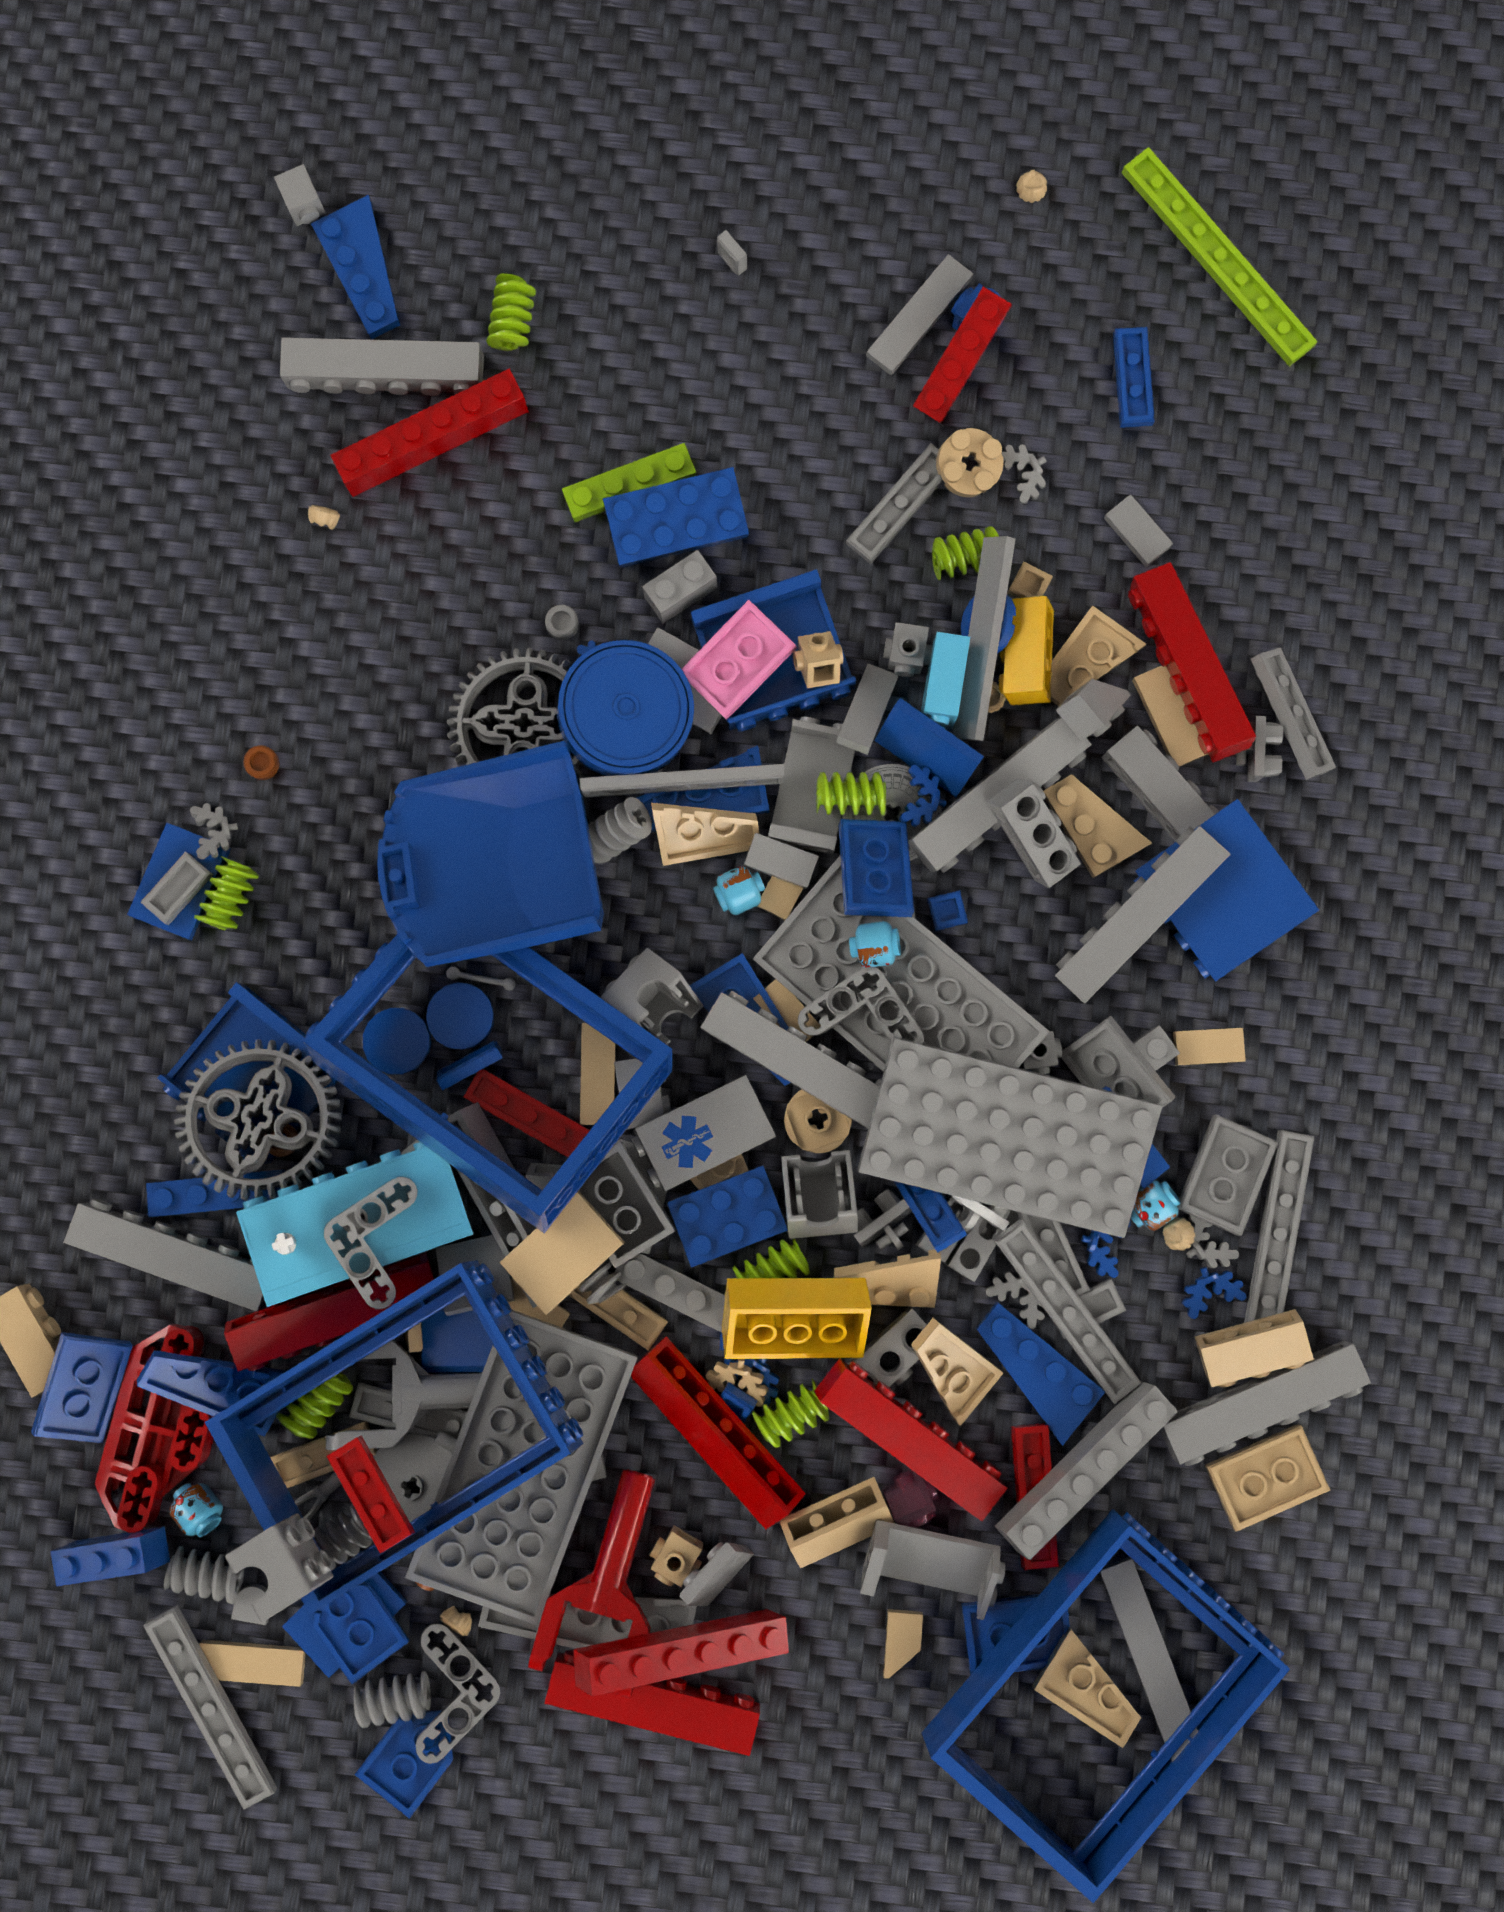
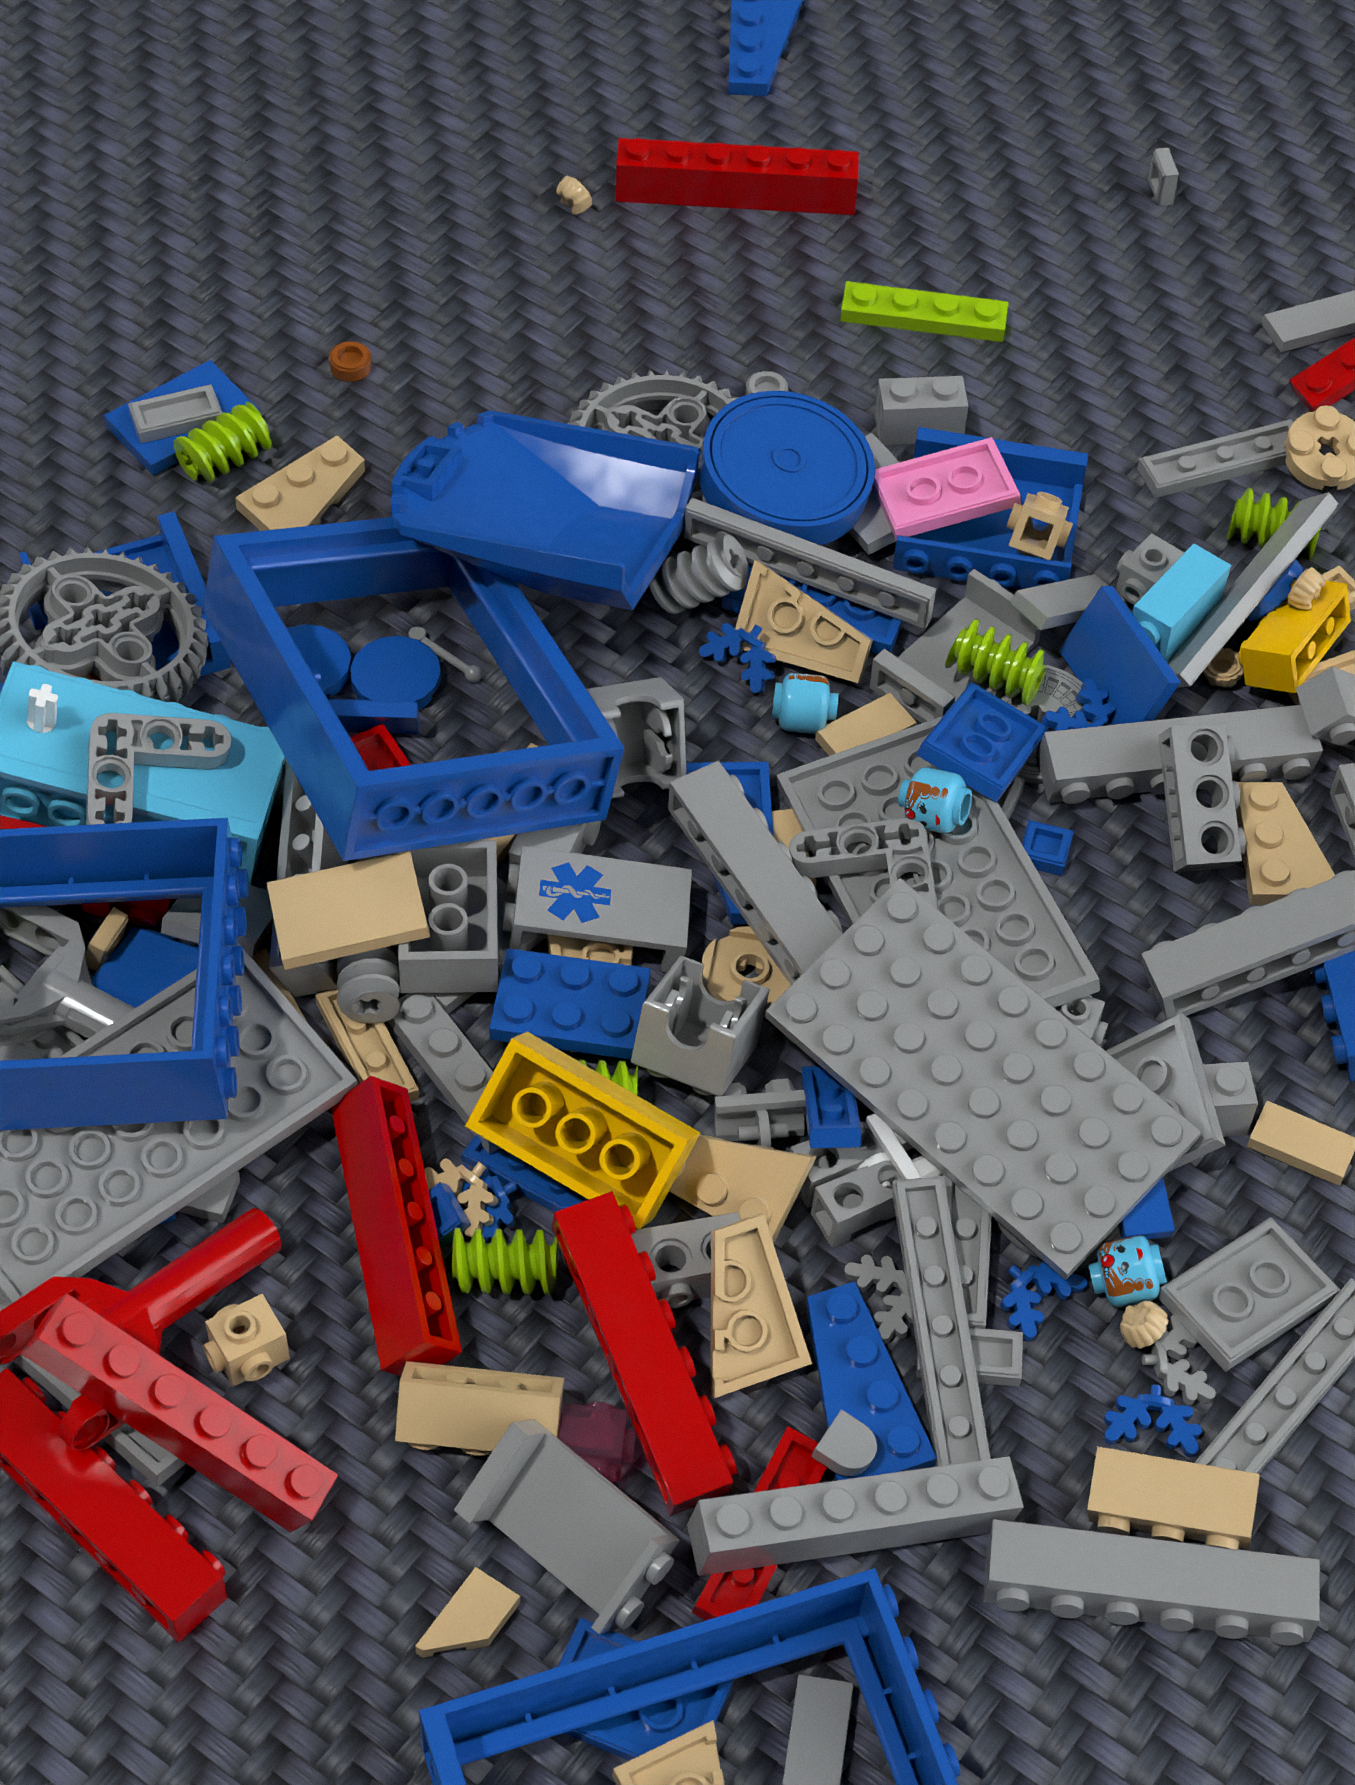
camera: 25 degrees right, 30 degrees down
(213, 821) = (258, 389): light grey animal -> none
(303, 899) = (303, 489): none -> tan wing
(380, 365) = (716, 102): light grey brick -> none
(510, 312) = (890, 123): lime piece -> none
(676, 517) = (949, 336): blue brick -> none
(688, 868) = (734, 642): none -> blue animal
(723, 1564) = (286, 1376): light grey tile -> none
(780, 860) = (873, 693): light grey tile -> none
(1025, 621) = (1305, 589): none -> tan piece
(1055, 1422) = (846, 1446): none -> light grey tile
(1267, 1477) = (1106, 1692): tan tile -> none

